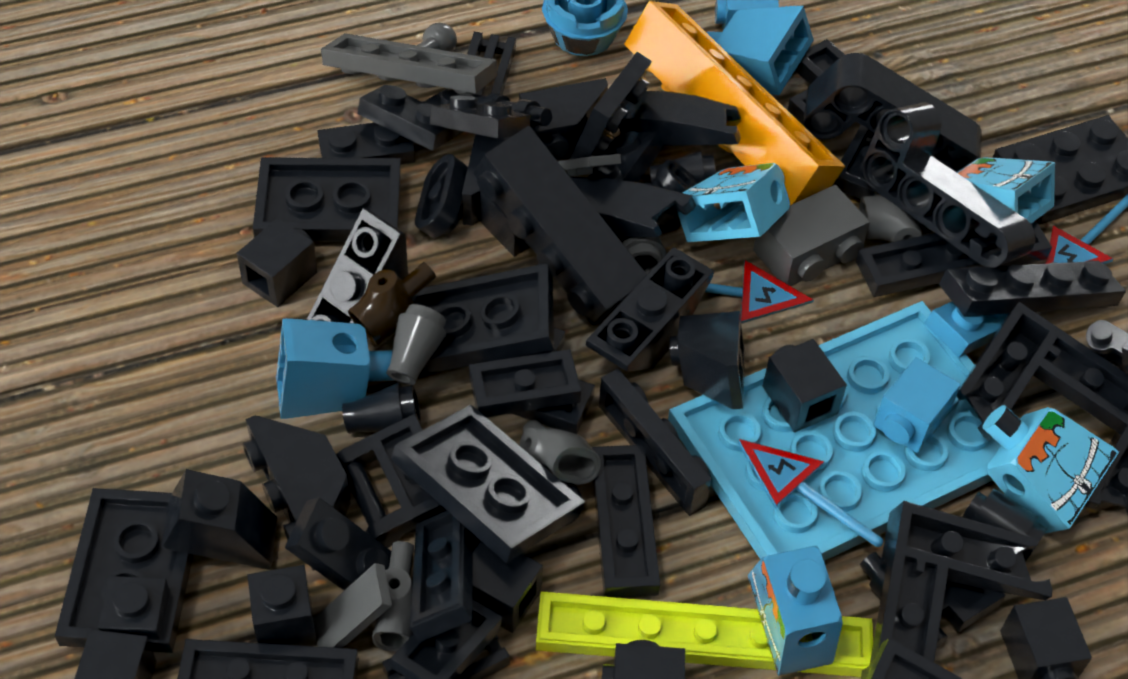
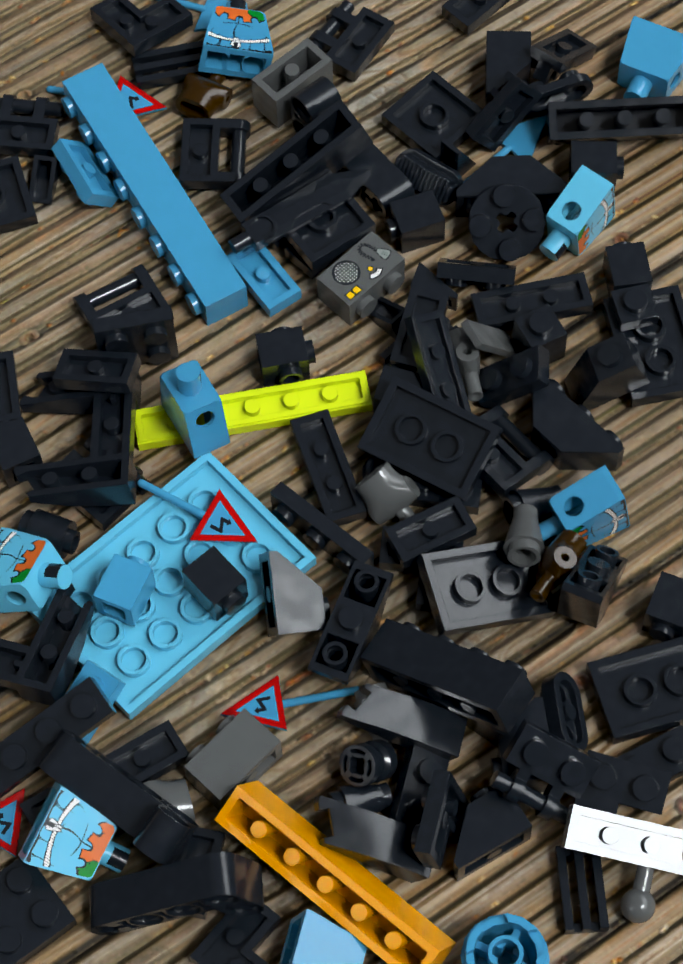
camera: 170 degrees right, 10 degrees up
(585, 165) = (444, 754): dark grey piece -> none
(749, 203) = (301, 743): medium azure torso -> none

